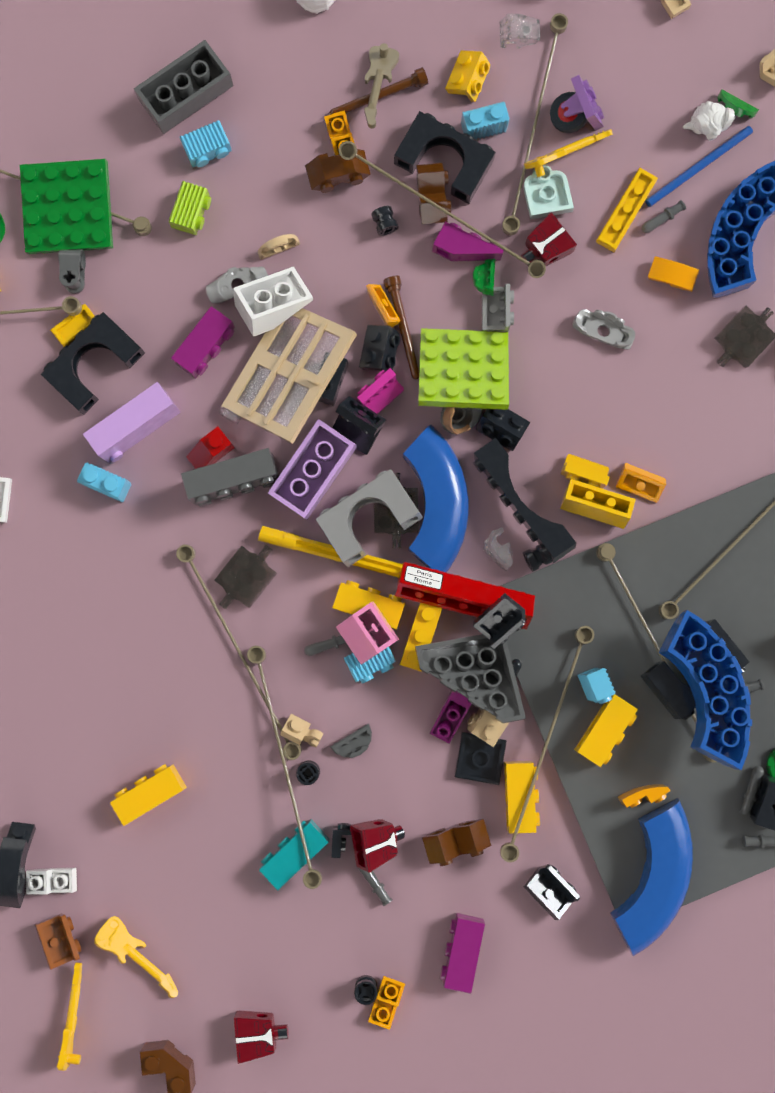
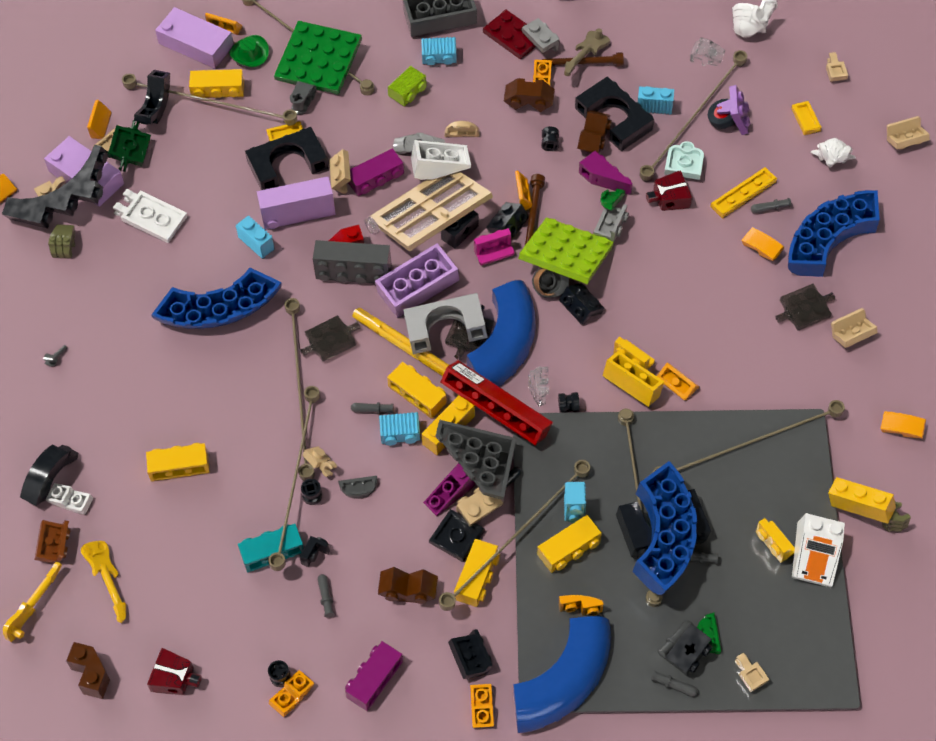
camera: 25 degrees right, 25 degrees down
(105, 591) = (217, 306): none -> blue brick
(163, 359) = (340, 171): none -> tan bracket
(281, 85) = (507, 32): none -> dark red plate
(318, 79) = (541, 35): none -> light grey bracket
(348, 151) = (652, 203): dark tan piece -> none
(358, 424) = (468, 260): black bracket -> none
(367, 632) = (405, 397): bright pink slope -> none
(375, 843) = (341, 558): dark red torso -> none
(468, 74) = (657, 68): yellow bracket -> none
(500, 620) = (514, 419): black bracket -> none
(538, 163) = (684, 136): yellow piece -> none
(551, 536) = (583, 381): black arch -> none
(583, 937) = (482, 705): none -> light orange slope
(619, 334) = (681, 257): light grey piece -> none
(661, 80) = (806, 118): none -> yellow tile
(699, 166) = (814, 181): blue piece -> none
(739, 106) = (859, 151): green tile -> none

